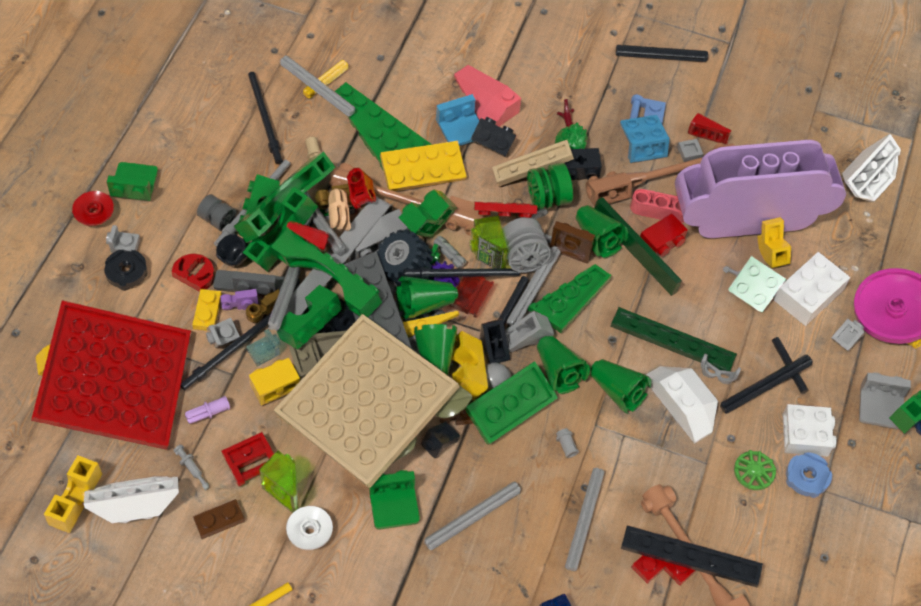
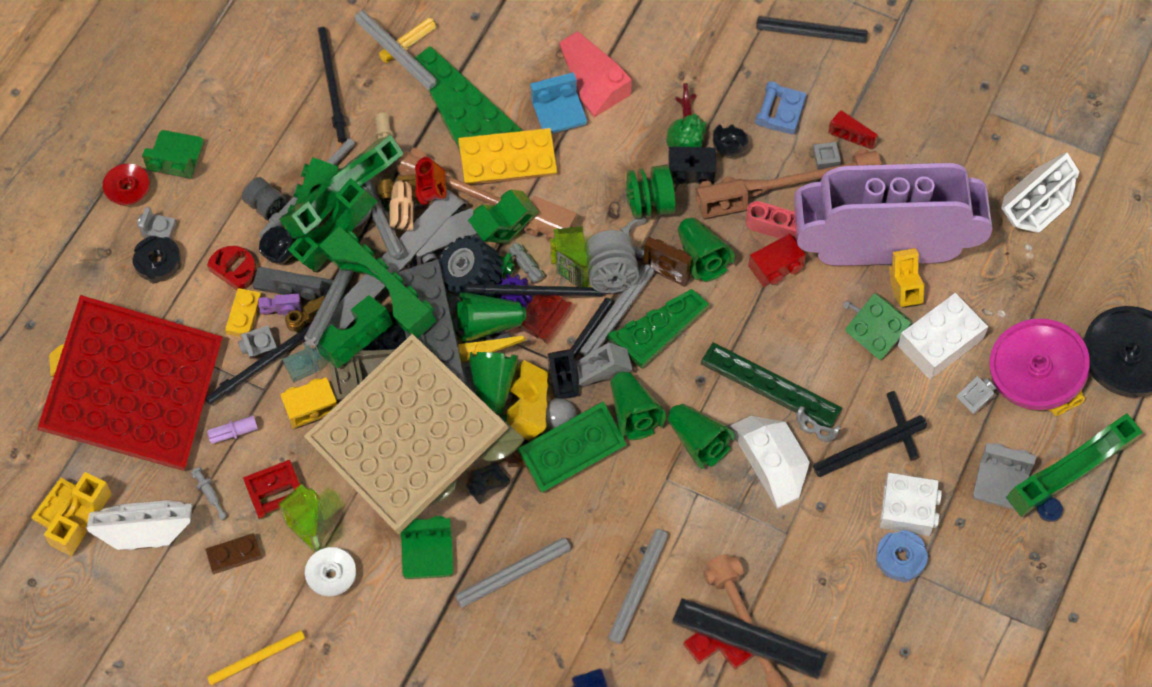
camera: 10 degrees right, 5 degrees up
(53, 483) = (56, 502): none -> yellow plate
(315, 236) = (368, 236): red slope -> none
(493, 136) = (593, 124): black bracket -> none
(519, 167) = (644, 157): tan plate -> none
(521, 209) = (612, 217): red plate -> none
(567, 443) = (630, 497): light grey pin -> none
(609, 143) = (729, 140): none -> black hair
(643, 252) = (748, 275): dark green tile -> none
(646, 138) = (774, 137): dark azure bracket -> none
(755, 470) = (841, 545): bright green wheel -> none

